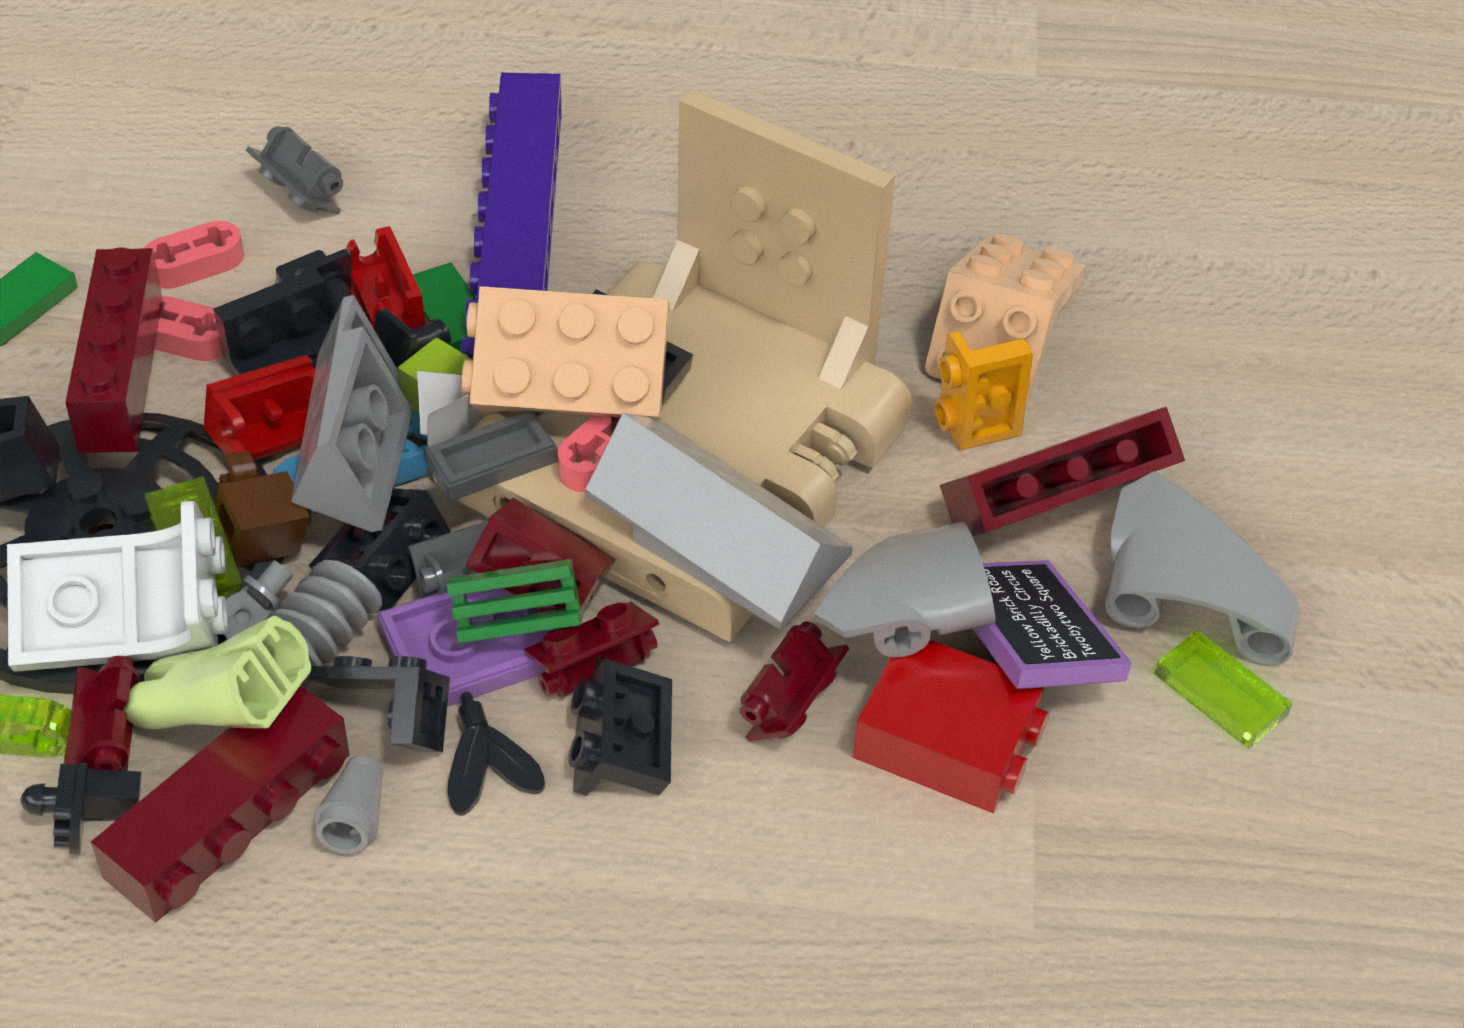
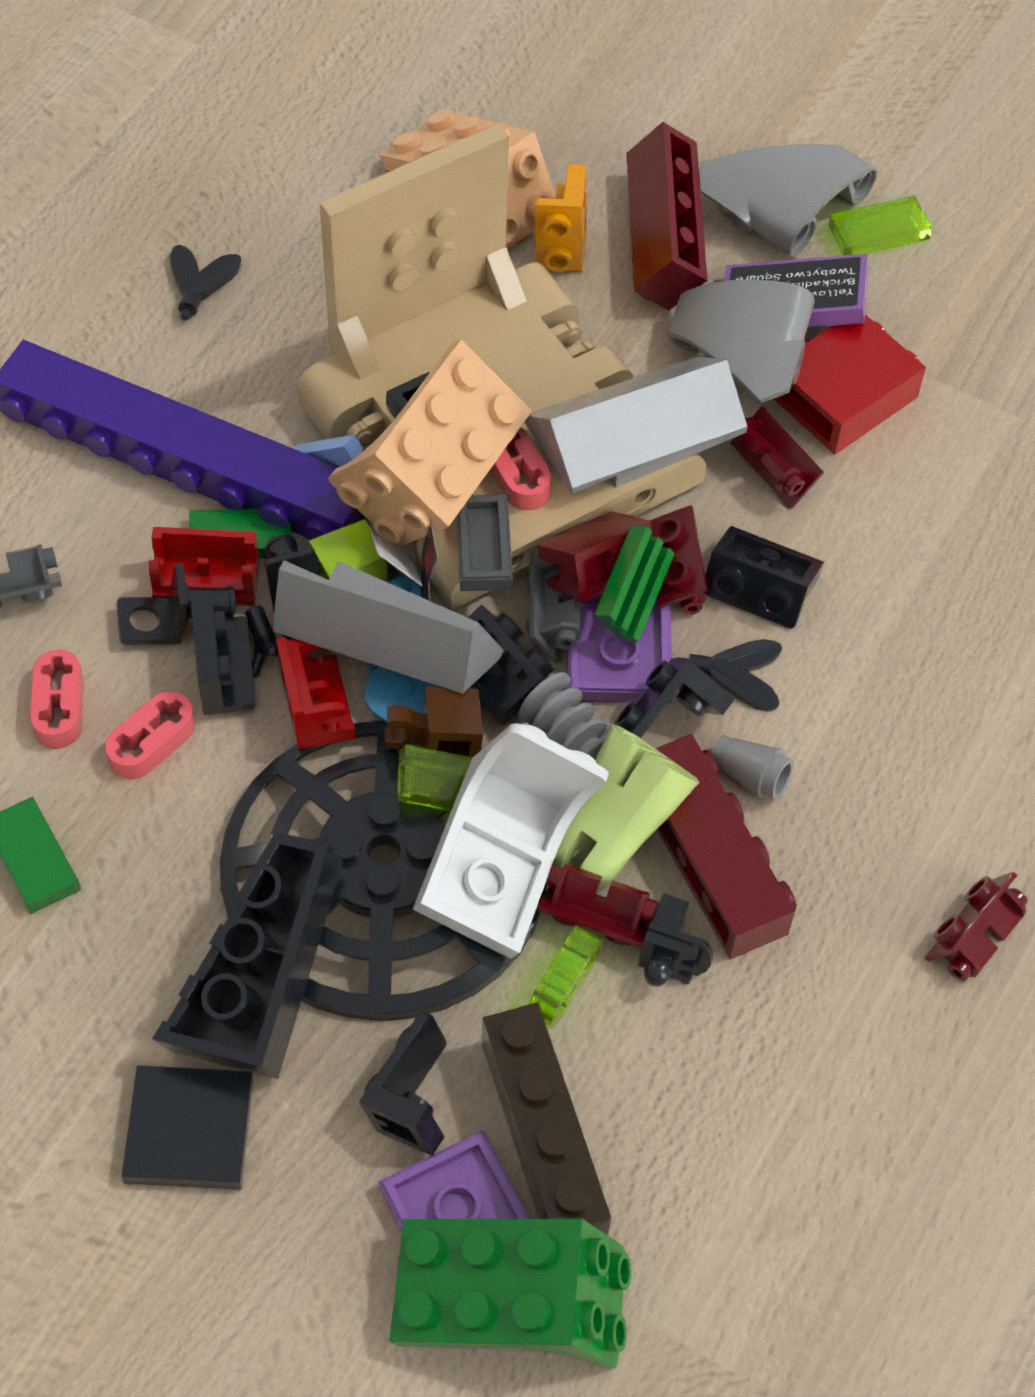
camera: 65 degrees left, 10 degrees up
(114, 351) = (195, 771): dark red brick -> none

